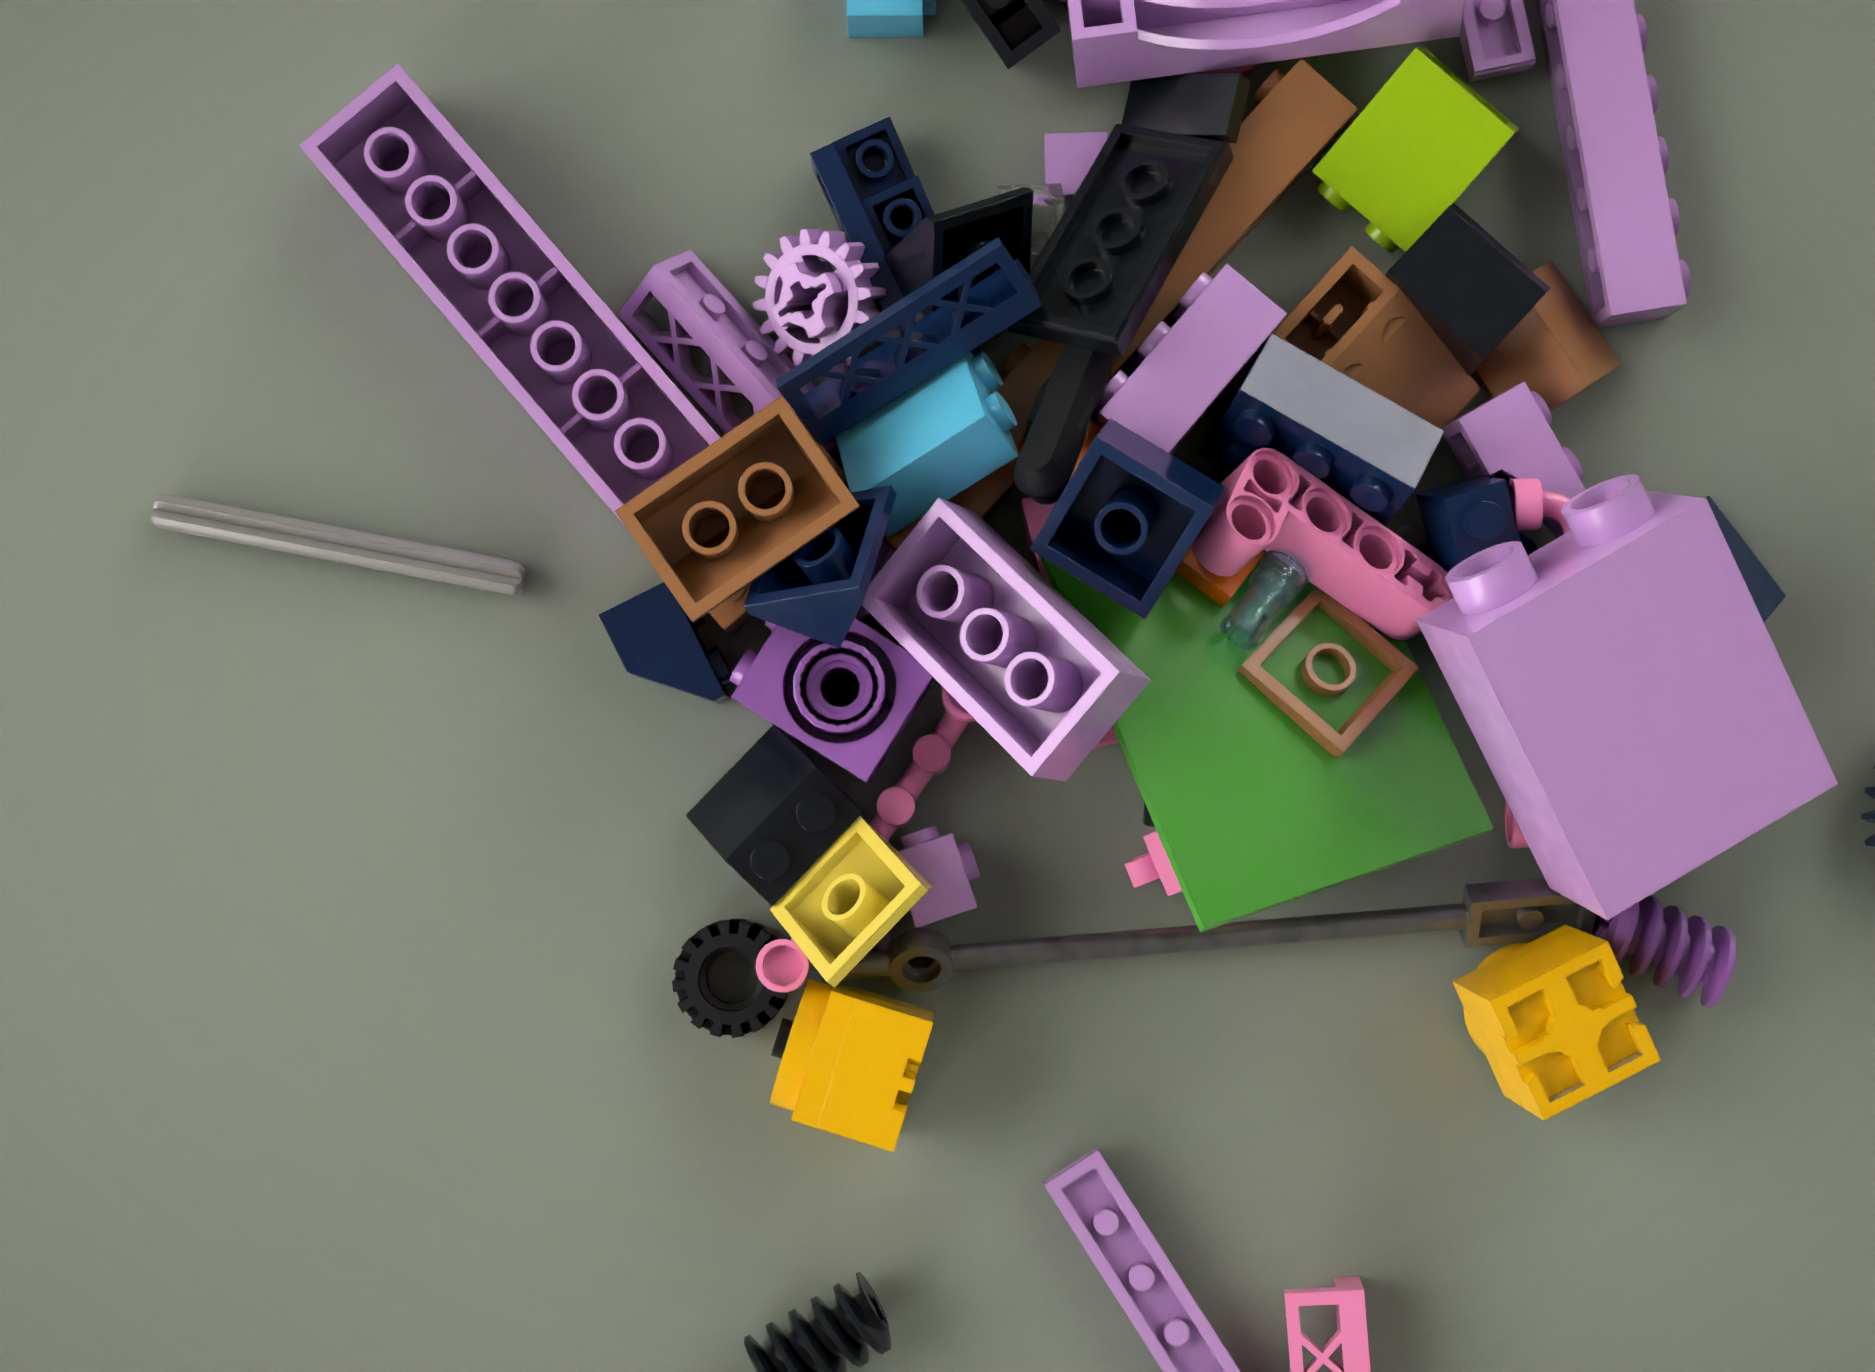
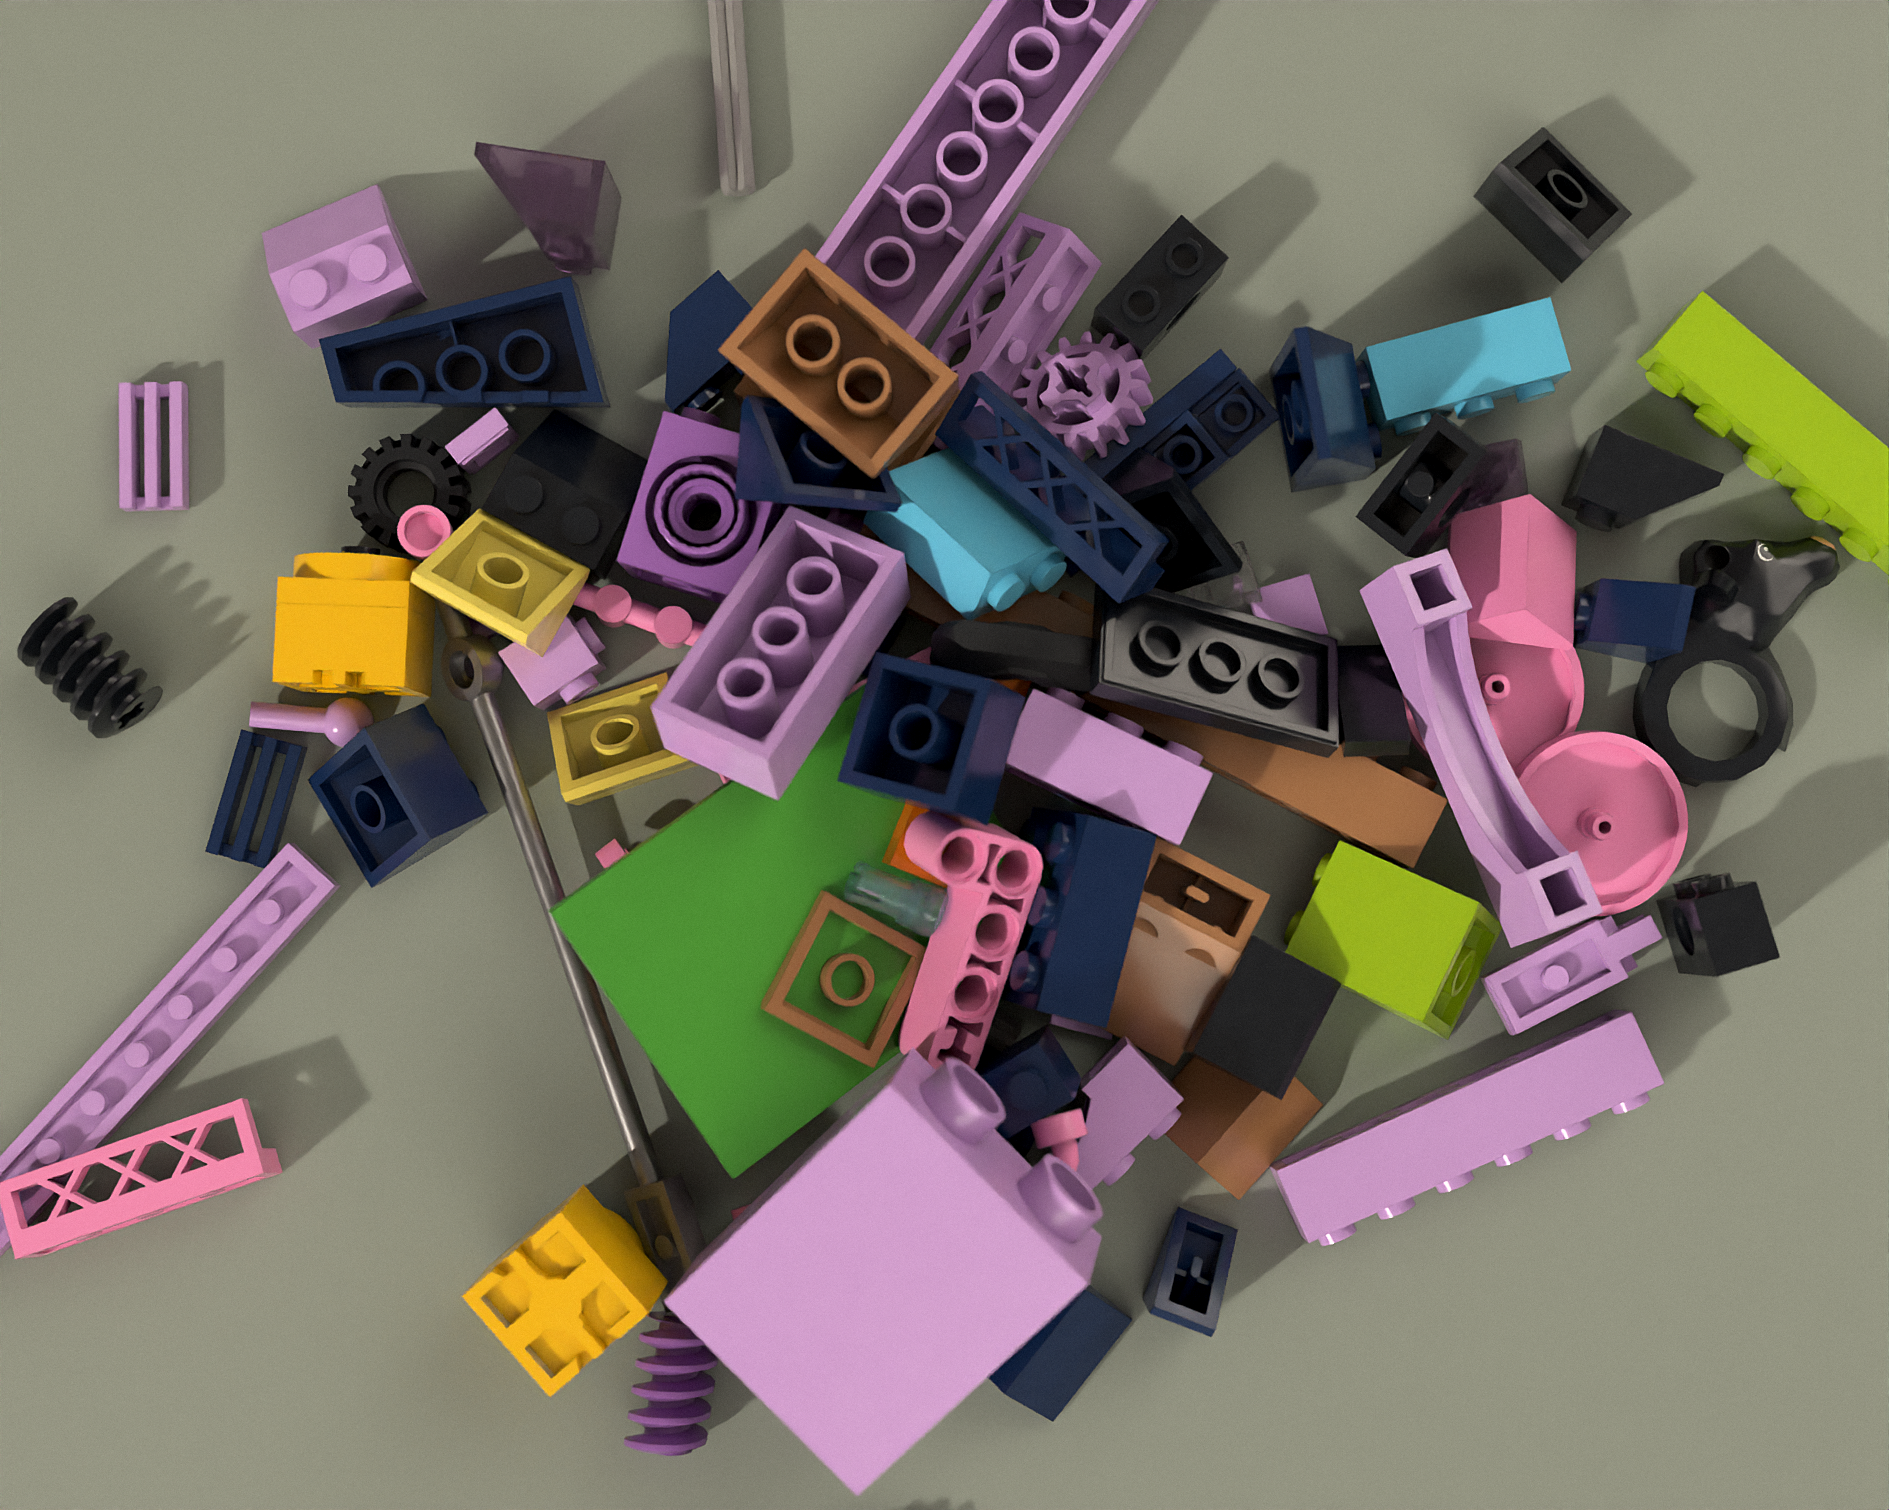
camera: 75 degrees right, 0 degrees up
(486, 987) = (341, 267): none -> lavender slope
(488, 756) = (560, 200): none -> clear purple slope
(608, 1245) = (130, 446): none -> lavender tile
(617, 863) = (484, 353): none -> dark blue wedge
(700, 892) = (482, 442): none -> lavender tile
(733, 196) = (1160, 288): none -> black brick
(898, 76) = (1323, 411): none -> dark blue slope
(936, 1102) = (338, 721): none -> lavender bar
(1025, 1066) = (397, 794): none -> dark blue slope
(1027, 837) = (611, 743): none -> light yellow slope
(1036, 1236) = (234, 790): none -> dark blue tile
(1683, 426) = (1191, 1272): none -> dark blue slope

